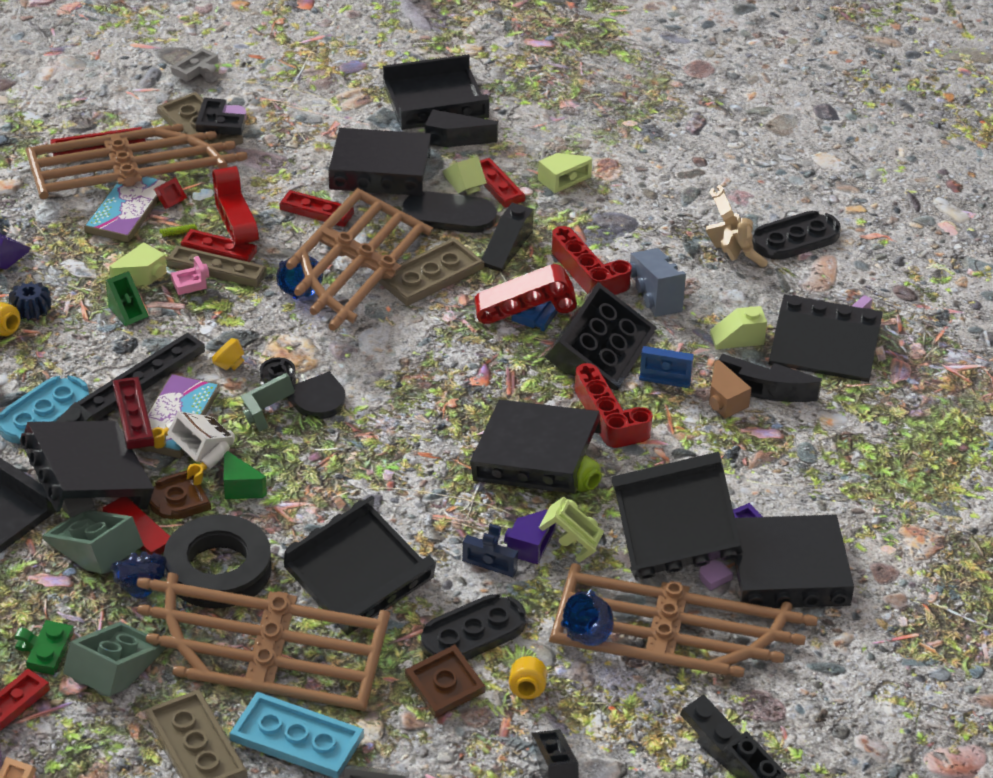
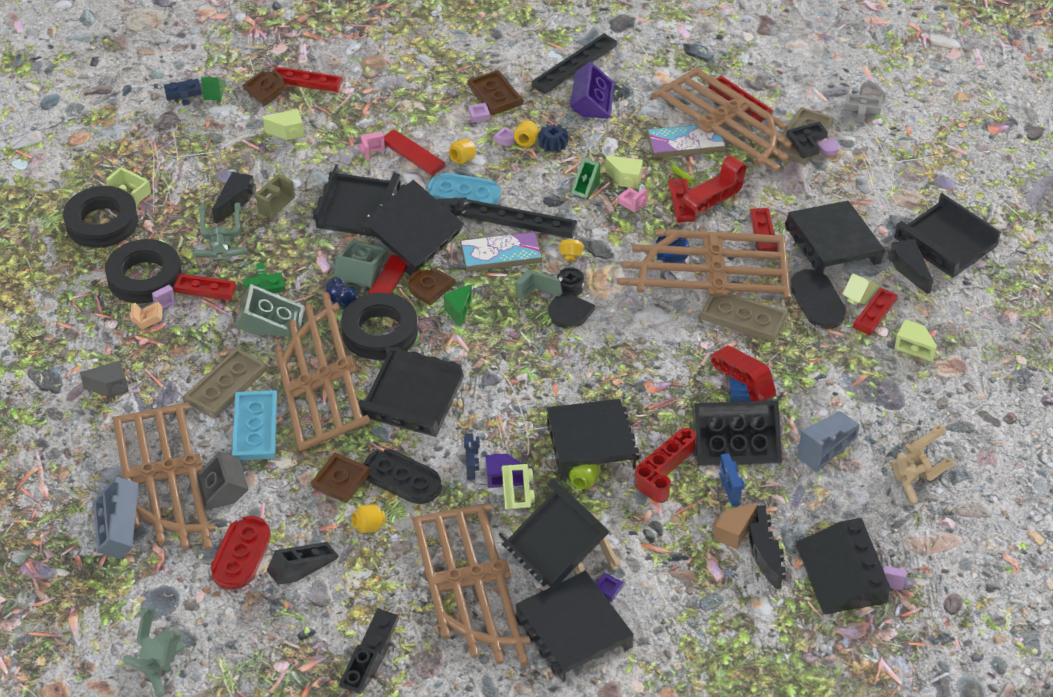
camera: 65 degrees right, 5 degrees up
(133, 413) = (475, 227): dark red tile -> none
(170, 193) = (712, 152): red plate -> none
(199, 437) = (474, 269): white torso -> none
(218, 266) = (660, 205): dark tan tile -> none
(509, 236) = (813, 339): black slope -> none
(584, 264) = (806, 403): red beam -> none
(587, 618) = (425, 525): clear blue hair -> none
(715, 574) = (533, 587): lavender tile -> none
(740, 329) = (814, 511): yellowish green slope -> none
(796, 235) = (965, 508): black tile -> none

